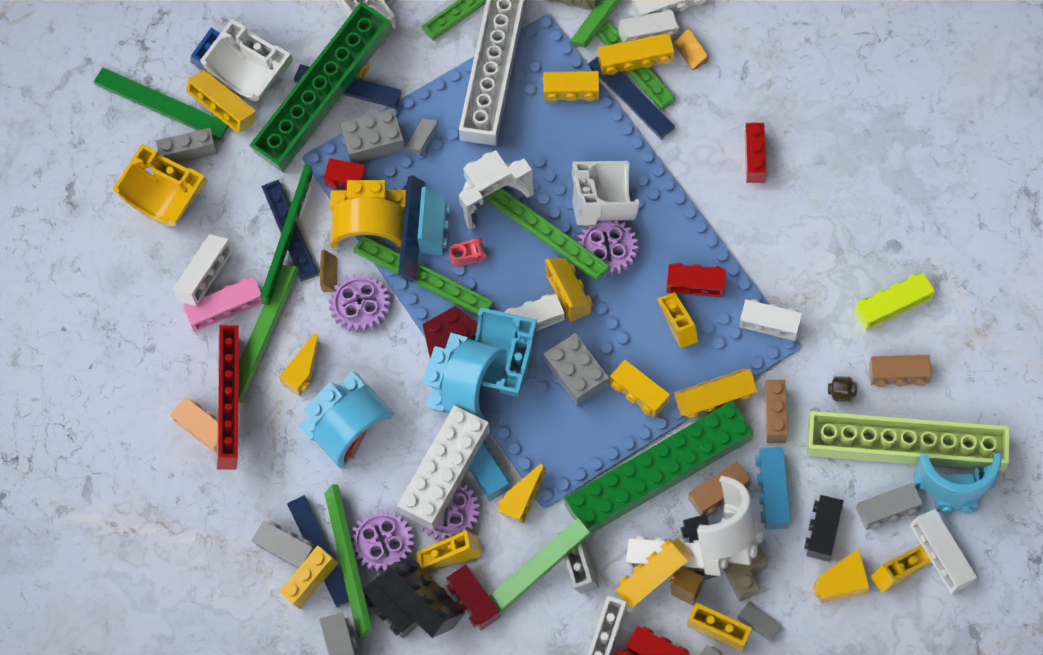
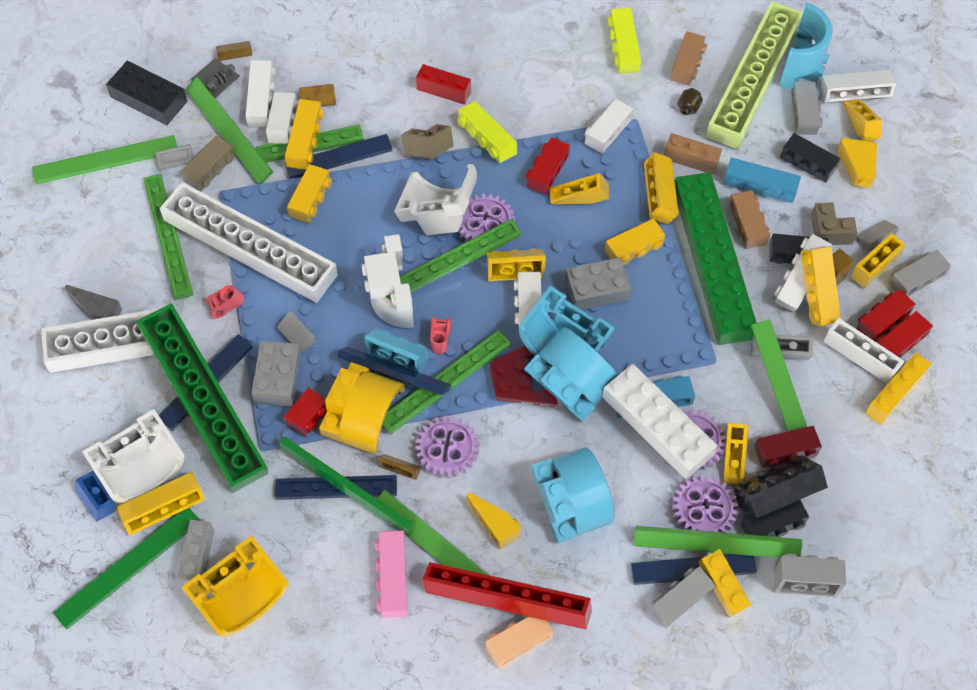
camera: 75 degrees left, 5 degrees down
(202, 270) = (350, 579): white brick -> none
(431, 66) = (224, 301): none -> coral piece
(520, 497) = (704, 372): yellow slope -> none
(673, 165) = (427, 142): none -> dark tan brick
(712, 212) = (487, 132): none -> neon yellow brick
(735, 537) = (809, 212): white piece -> none

